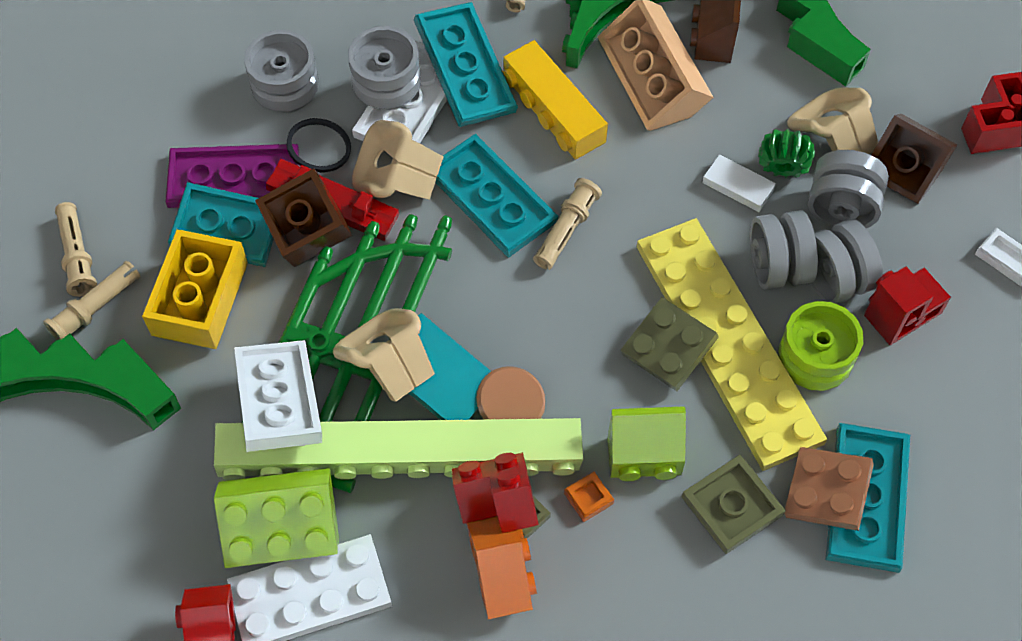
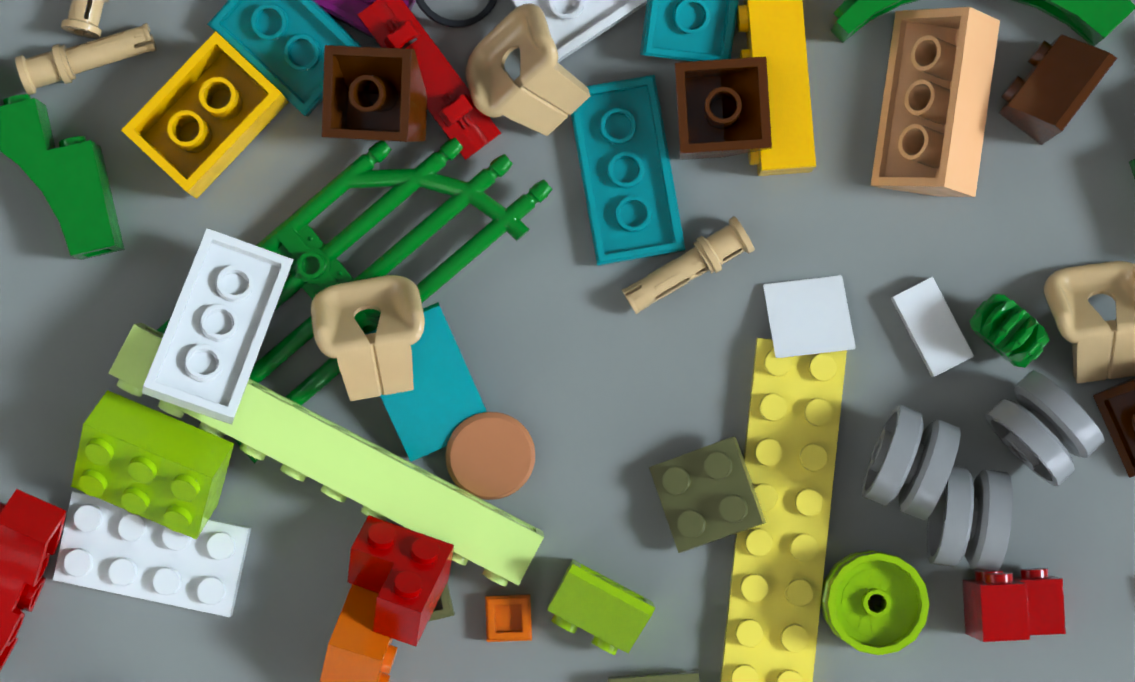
camera: 30 degrees right, 25 degrees up
(528, 123) = (723, 107): none -> reddish brown slope
(660, 213) = (809, 316): none -> white sticker

